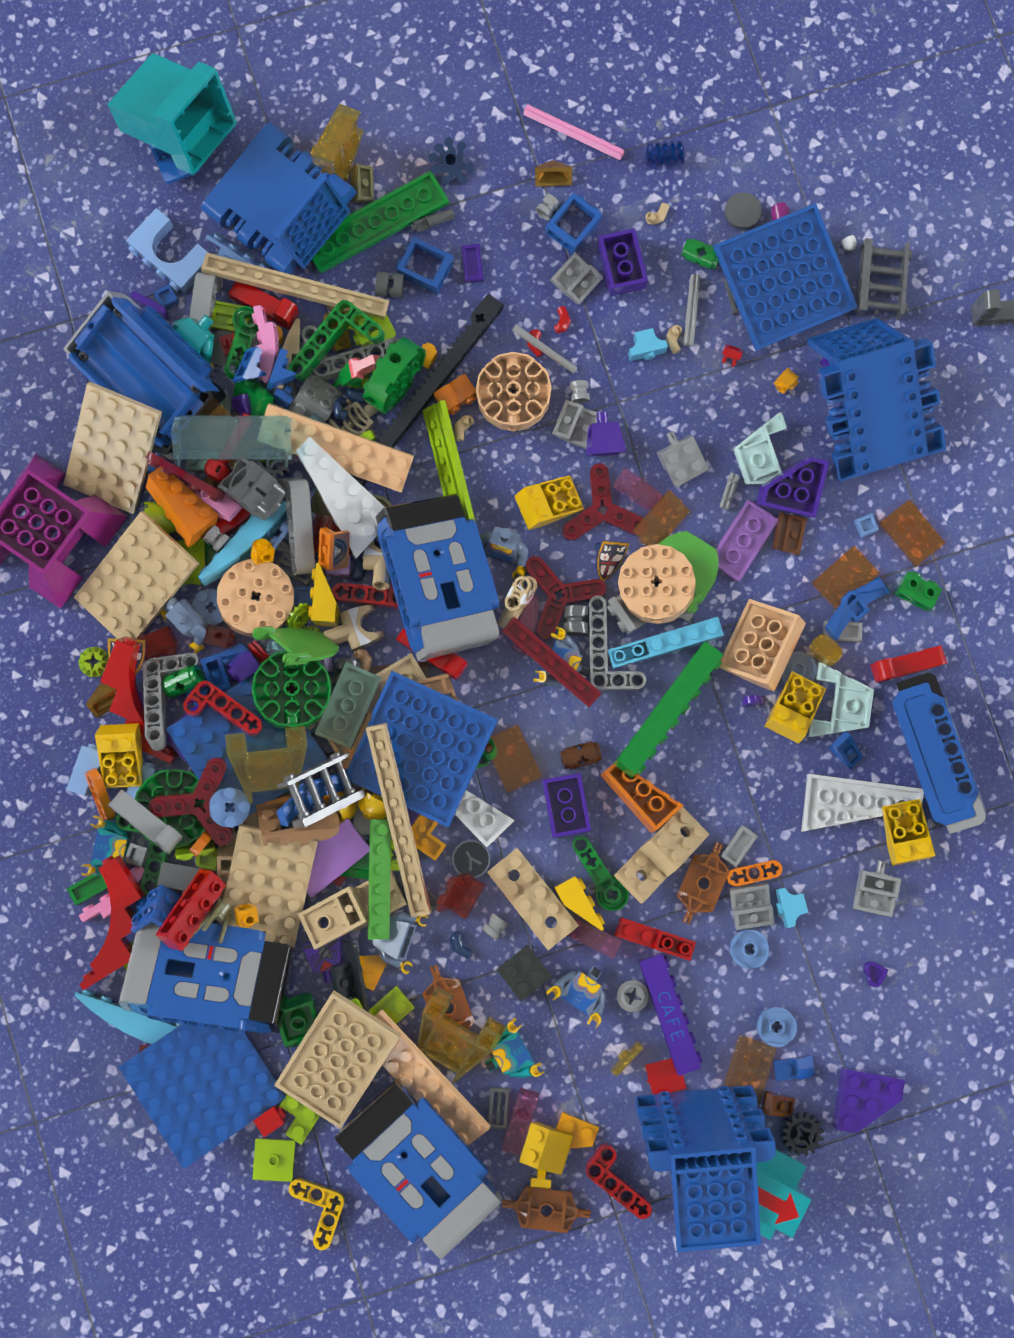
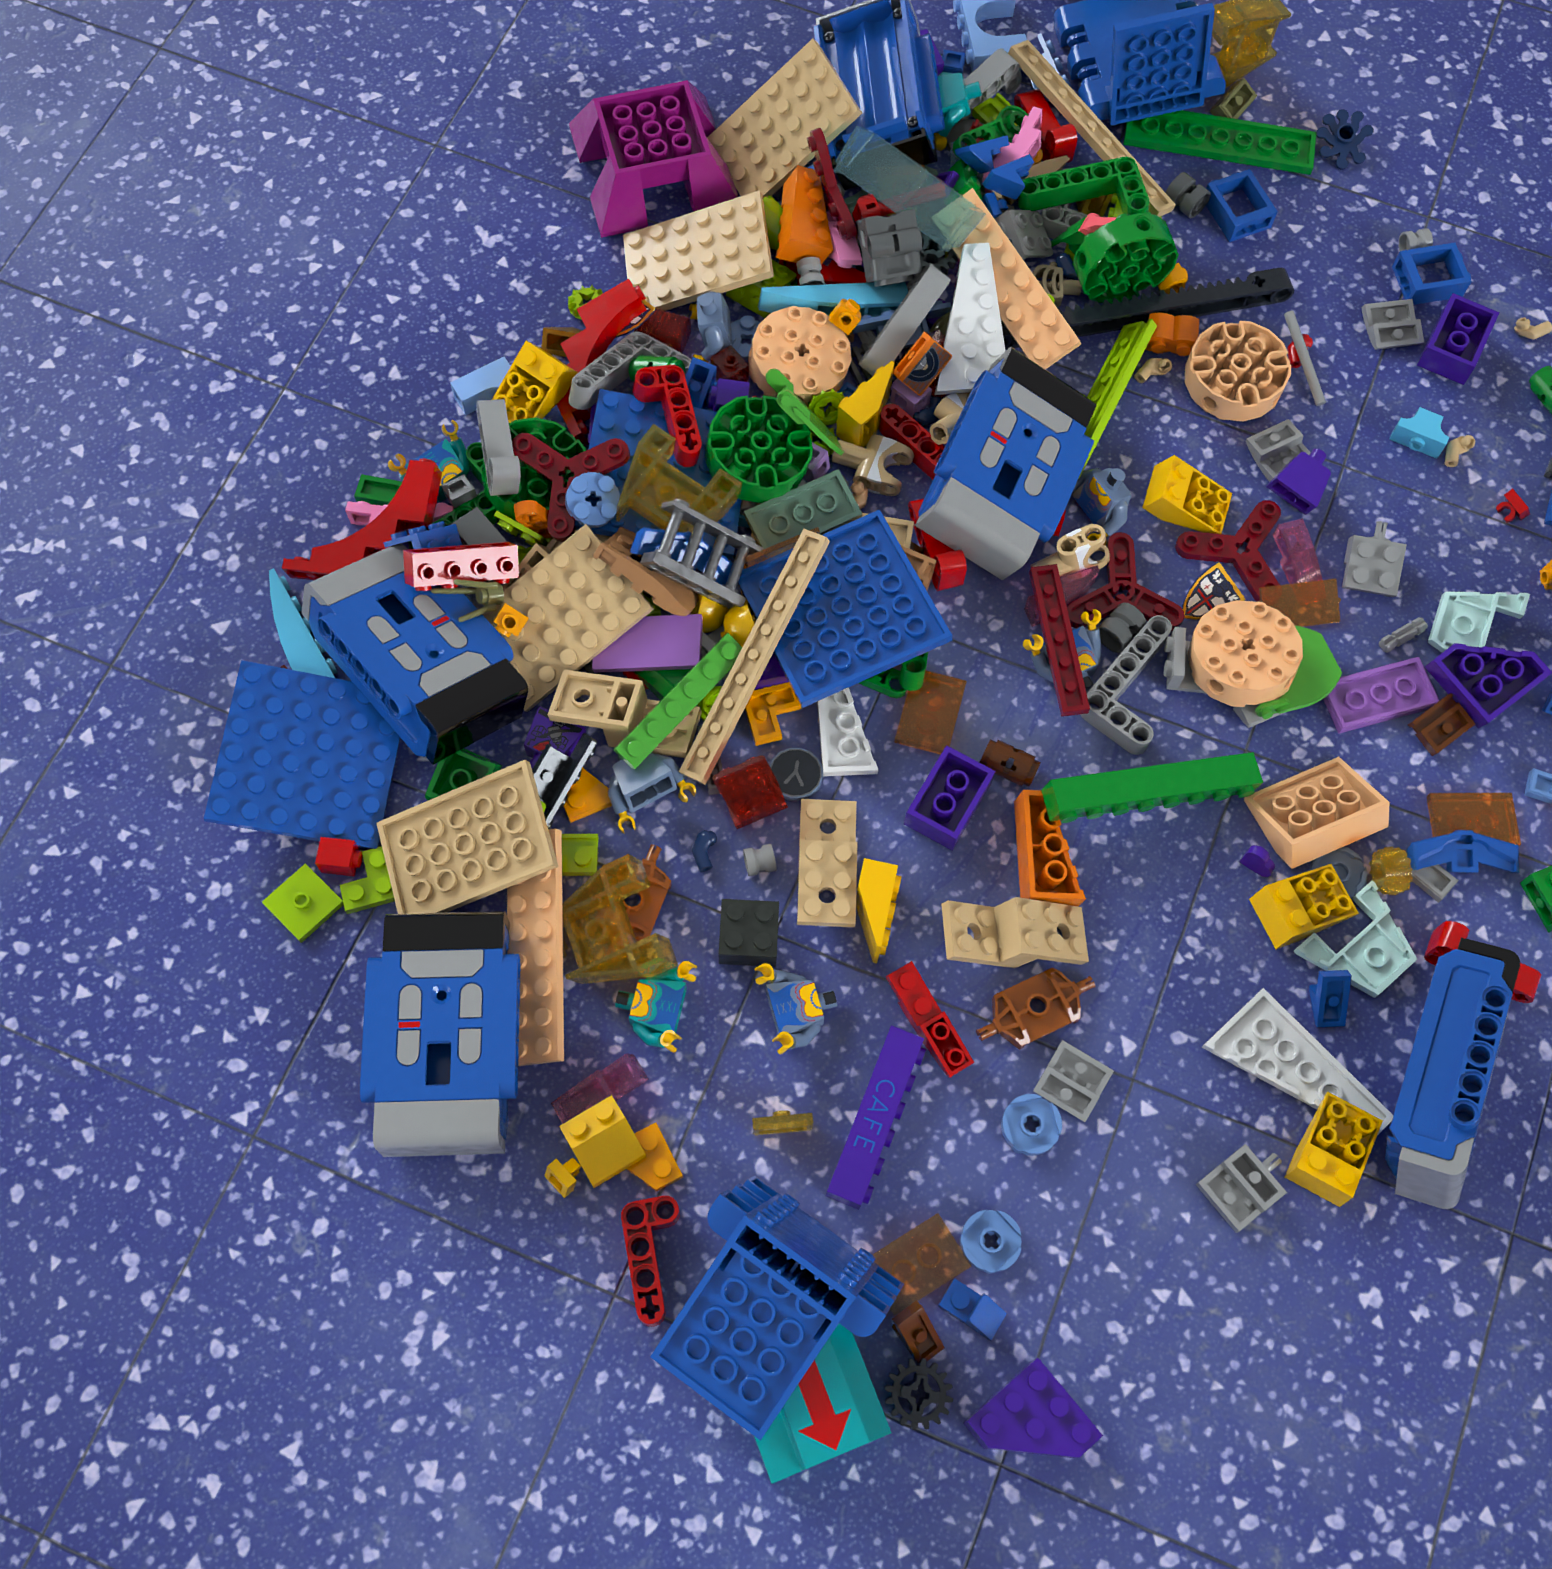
camera: 40 degrees right, 15 degrees down
(99, 794) = (471, 428): orange beam -> none
(324, 1202) = (311, 992): yellow beam -> none
(338, 412) = (1039, 260): dark blue arm -> none
(432, 220) = (1280, 175): dark grey piece -> none
(472, 263) = (1290, 239): dark purple tile -> none
(499, 1090) = (601, 1031): dark grey tile -> none
(531, 1201) = (546, 1239): dark orange plate -> none
(553, 174) = (1444, 221): pearl gold slope -> none
(564, 321) = (1347, 351): red arm -> none
(573, 132) = (1498, 201): bright pink axle -> none
(579, 391) = (1311, 421): light grey wheel -> none
(595, 938) = (859, 961): clear pink slope -> none
(603, 879) = (923, 908): green beam -> none
(636, 1004) = (853, 1050): light grey gear -> none
(663, 1077) = (808, 1185): red piece -> none
(666, 643) = (1206, 725): medium azure slope -> none
(691, 313) = (1499, 438): light grey axle -> none
(738, 846) = (1112, 1003): light grey tile -> none
(769, 875) = (1121, 1064): orange beam -> none
(790, 906) = (1121, 1116): medium azure brick -> none
(875, 973) = (1163, 1283): dark purple tile -> none

